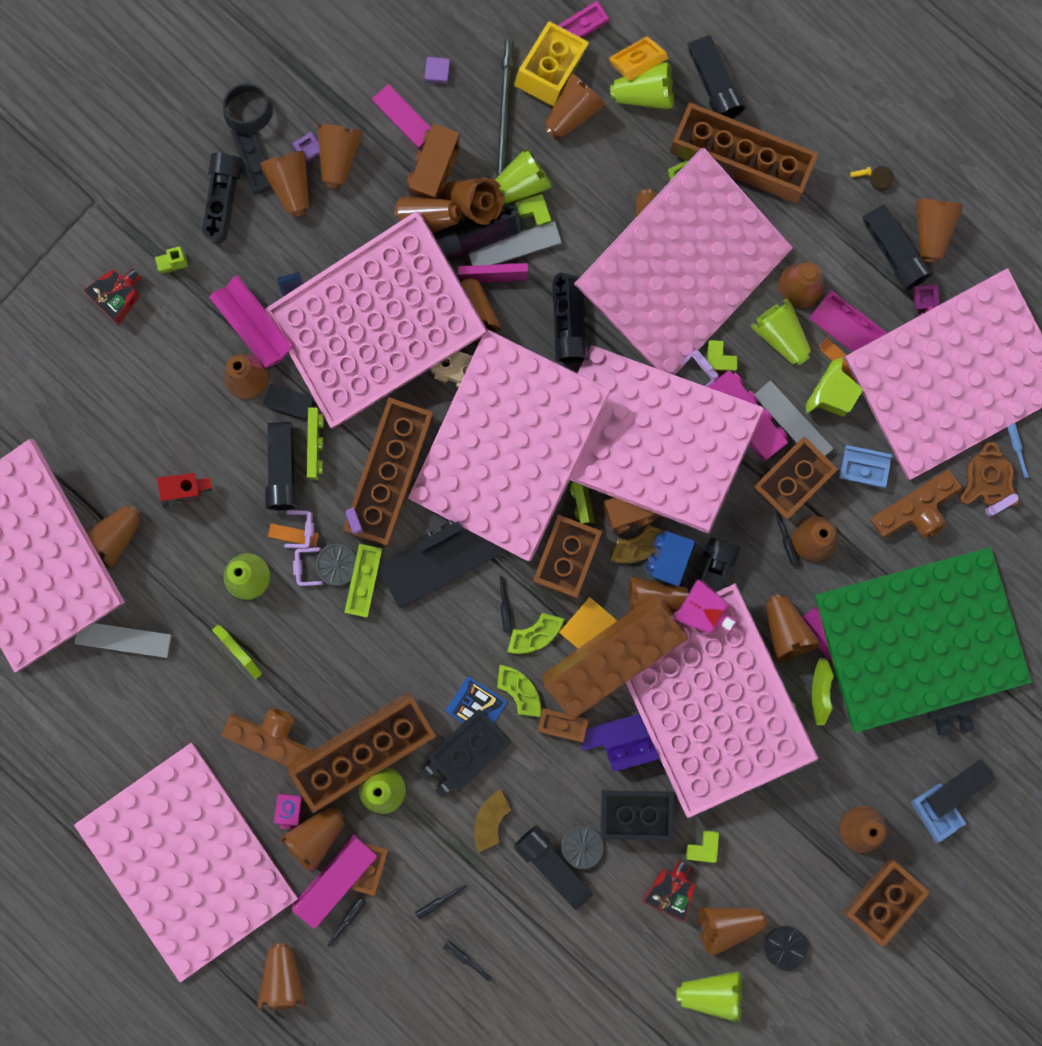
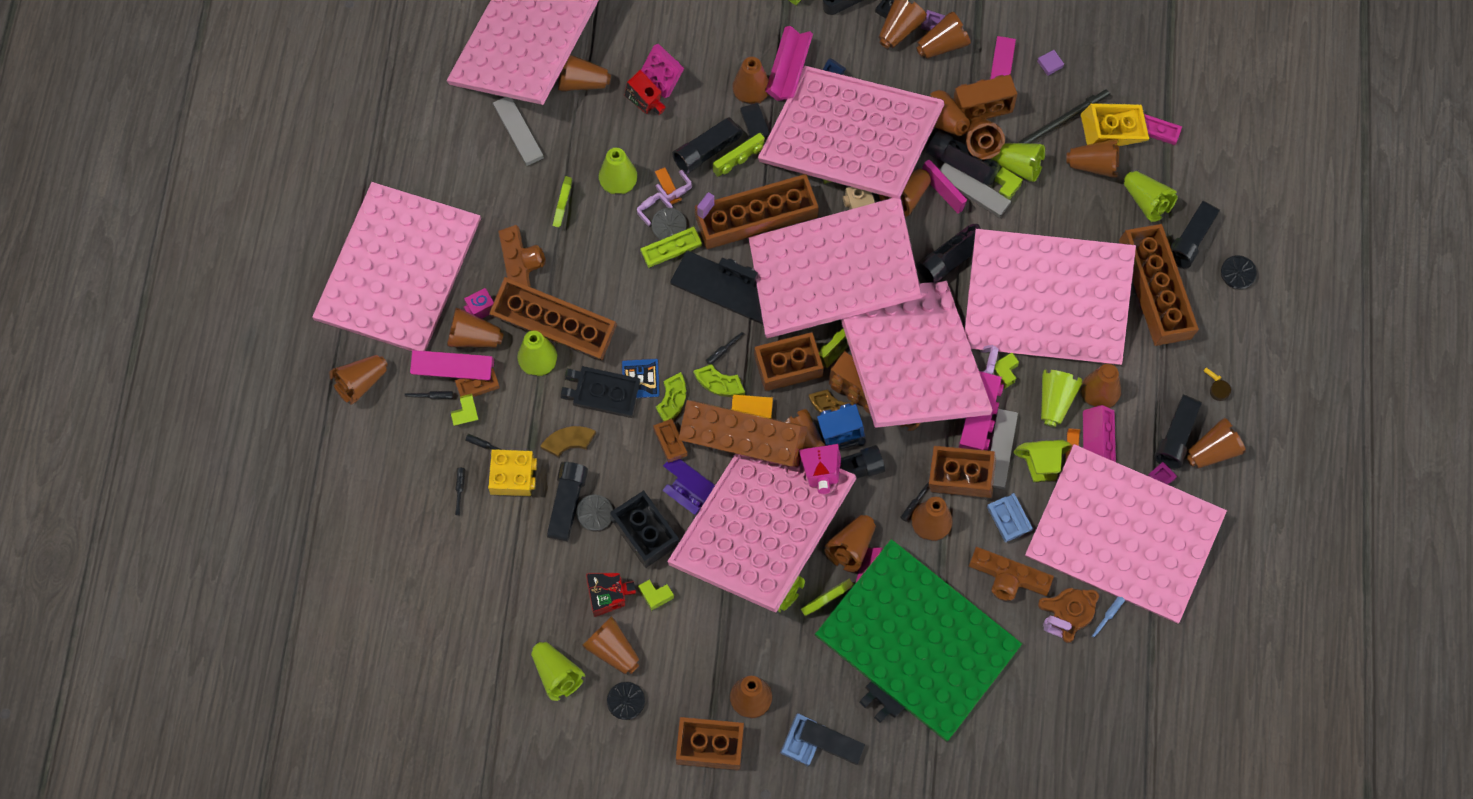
camera: 50 degrees right, 15 degrees down
(166, 449) = (663, 67): none -> dark pink plate
(393, 899) = (467, 413): none -> lime piece
(489, 900) = (512, 472): none -> yellow brick
(638, 58) = (1164, 175): light orange tile -> none
(780, 67) = (1238, 272): none -> black wheel

